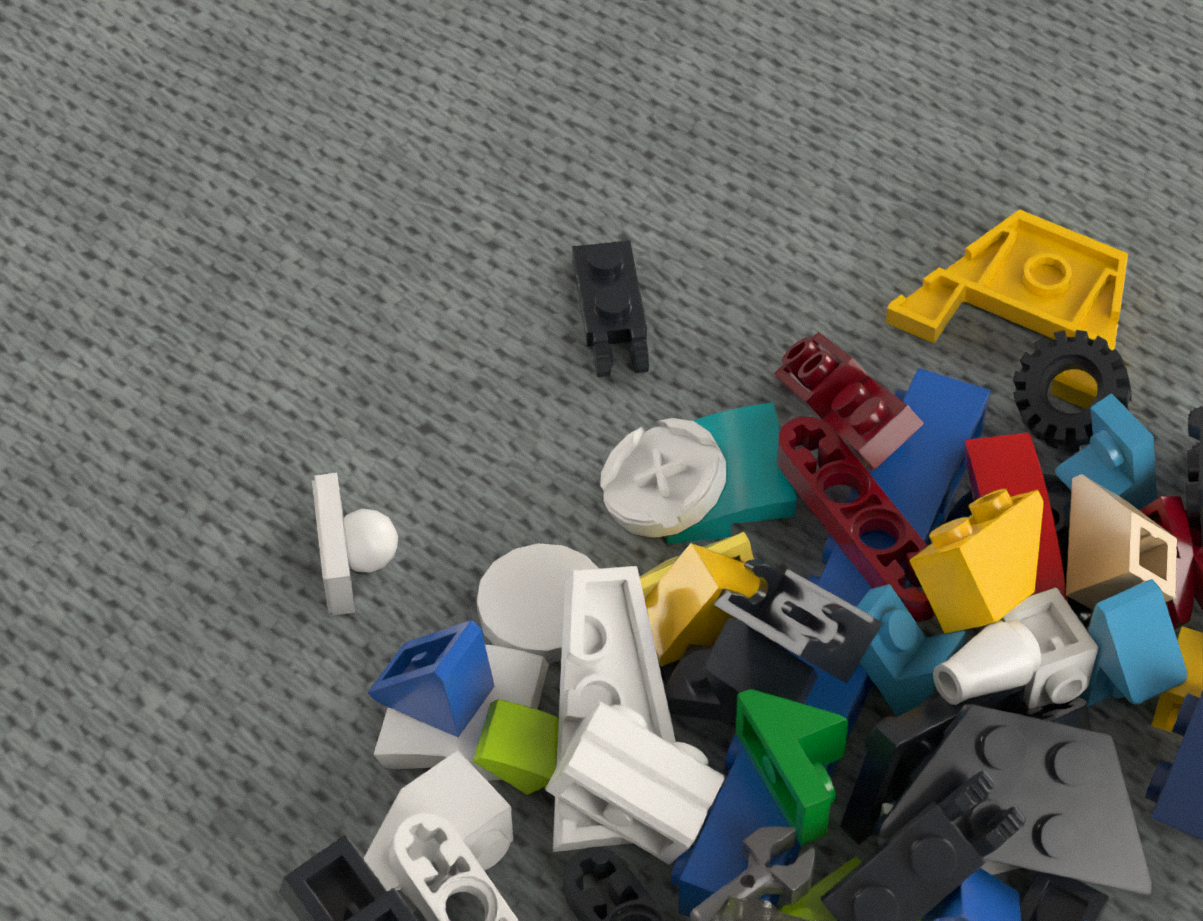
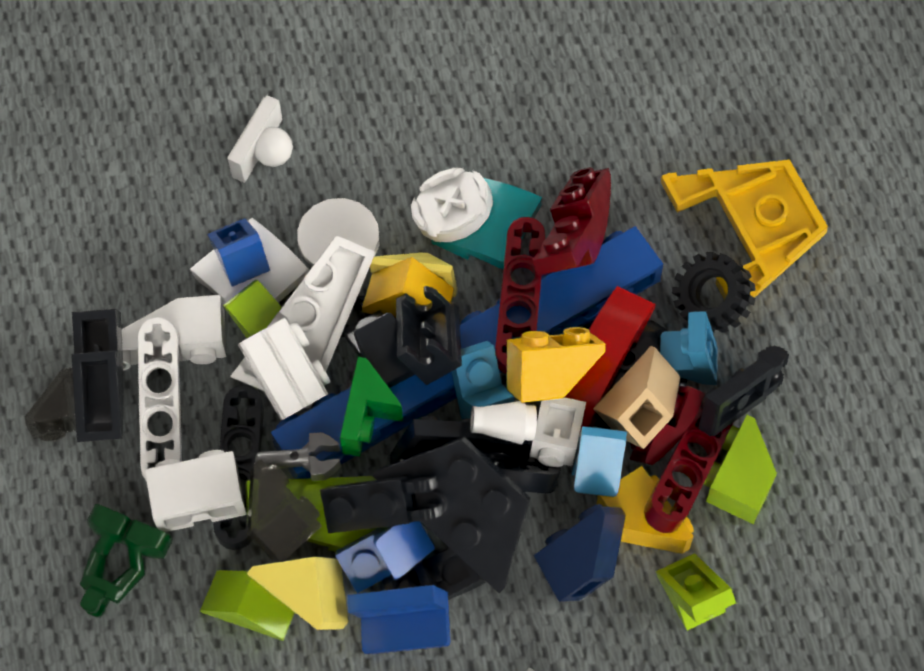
camera: 35 degrees right, 15 degrees up
(611, 303) = (515, 79): black hinge -> none

